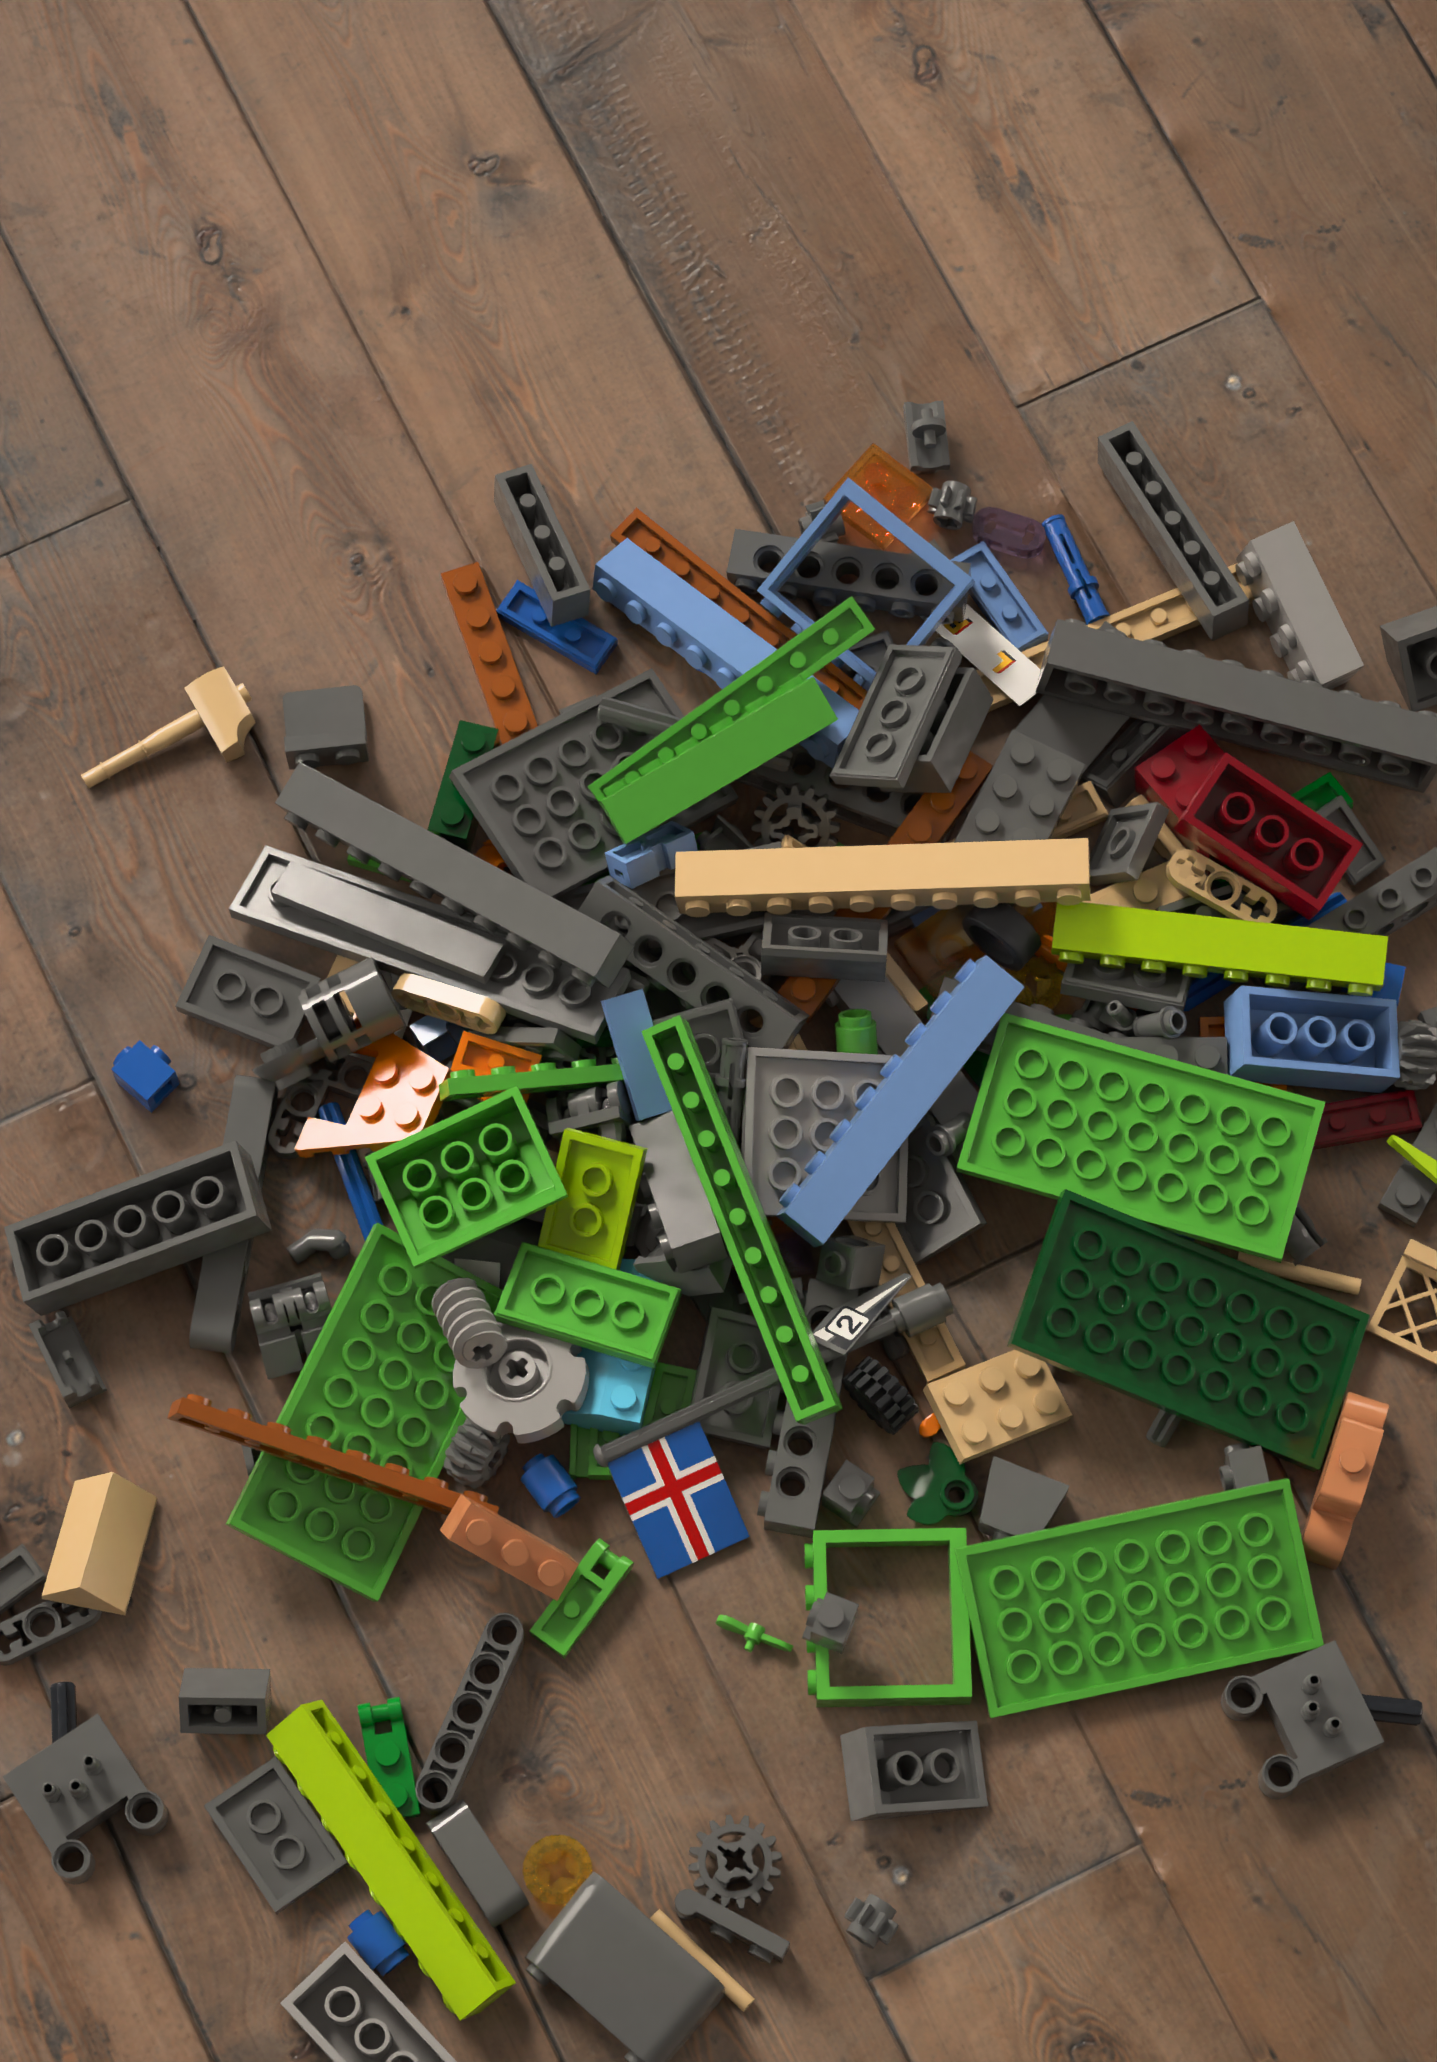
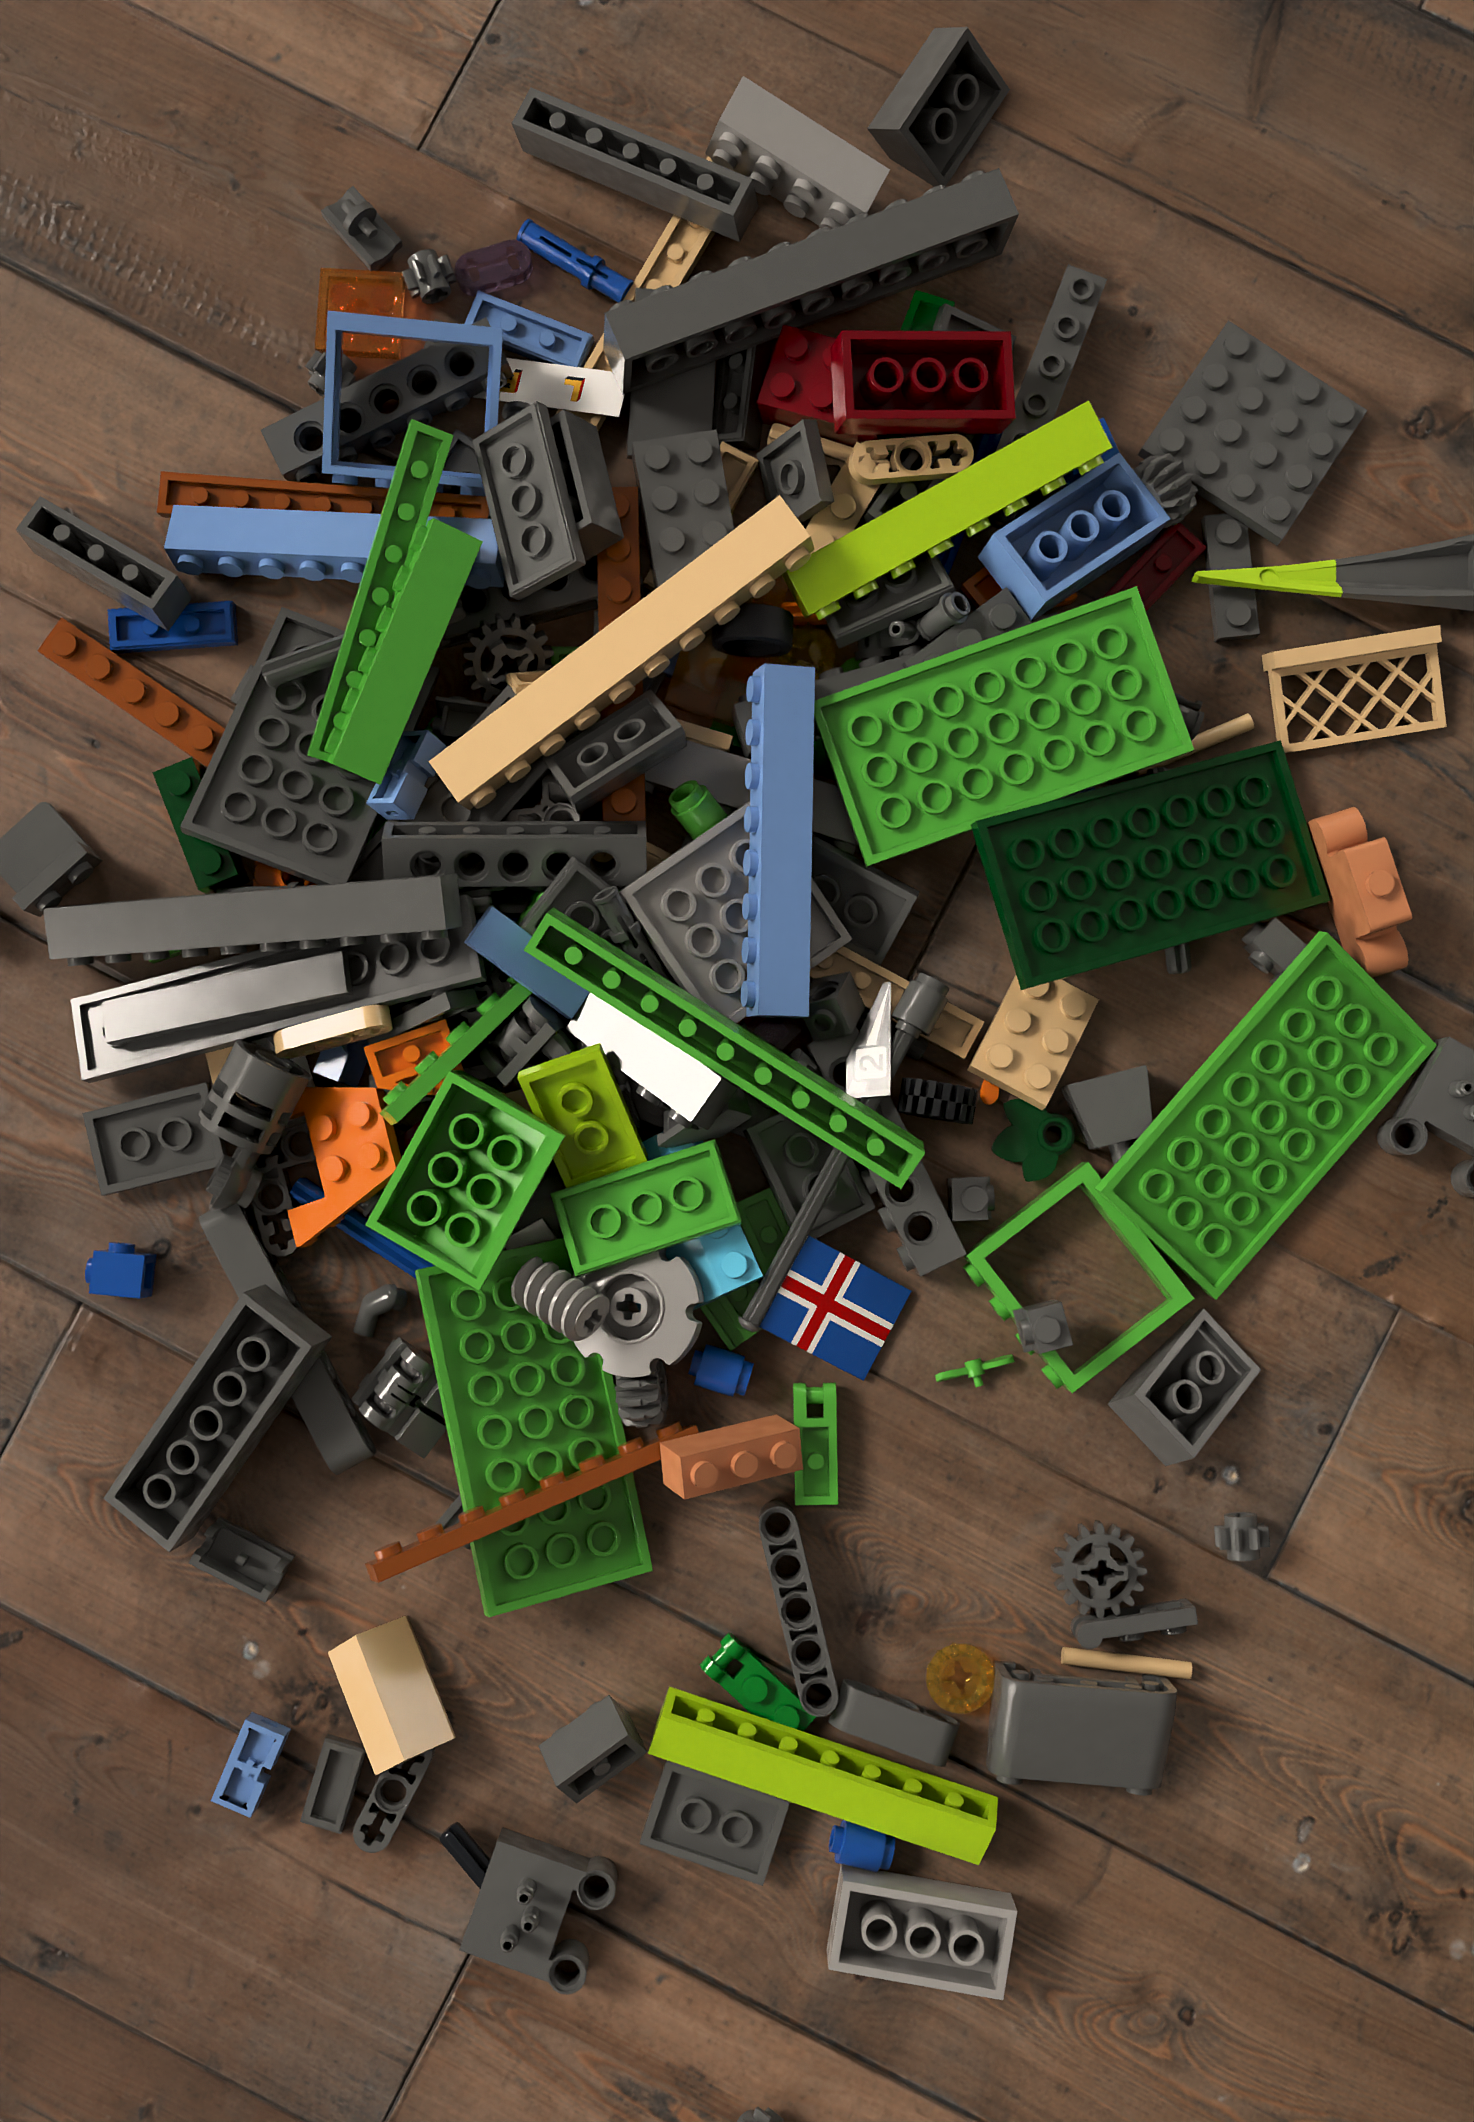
camera: 35 degrees left, 15 degrees up
(944, 1138) = (837, 846): dark grey pin -> none

